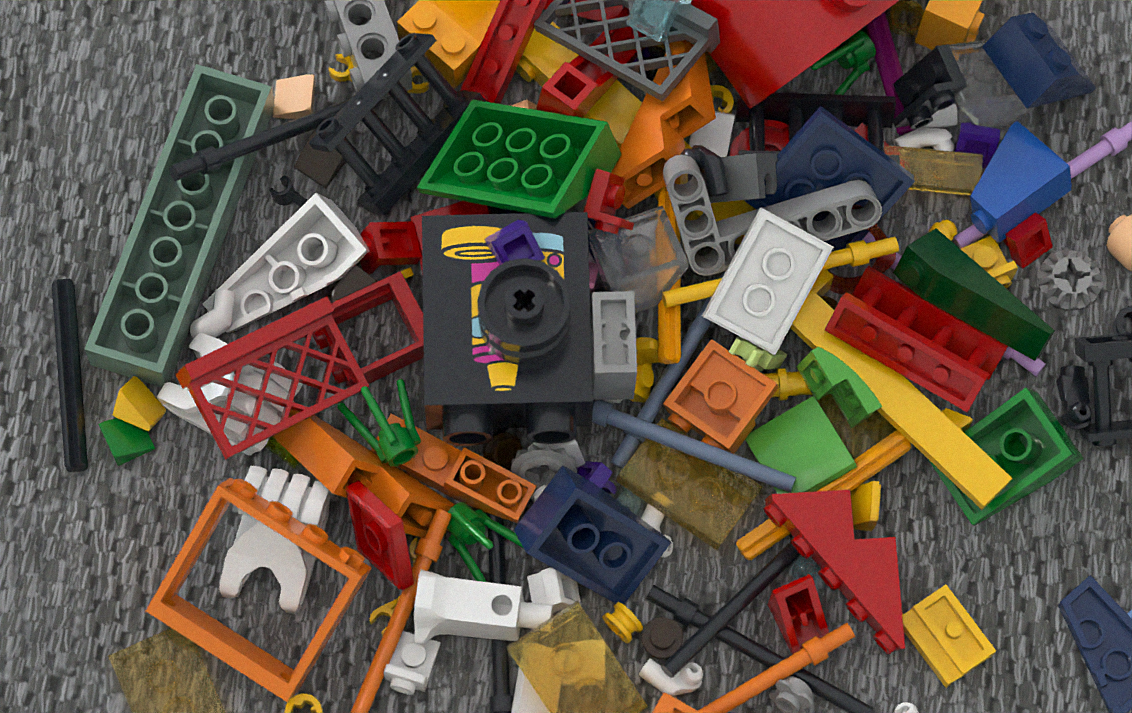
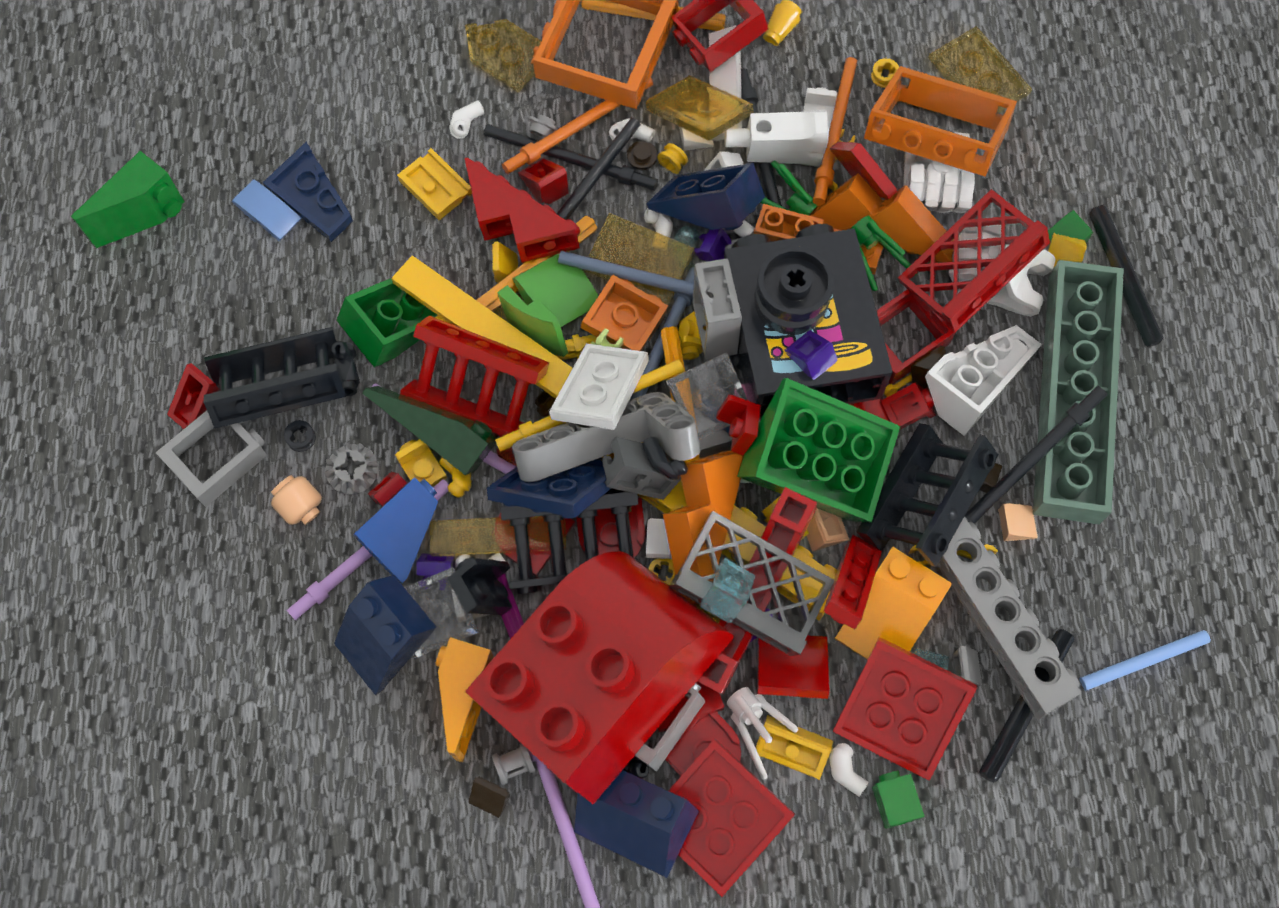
camera: 175 degrees right, 0 degrees up
(219, 318) = (1027, 326): white arm -> none
(289, 195) = (998, 434): black hand -> none

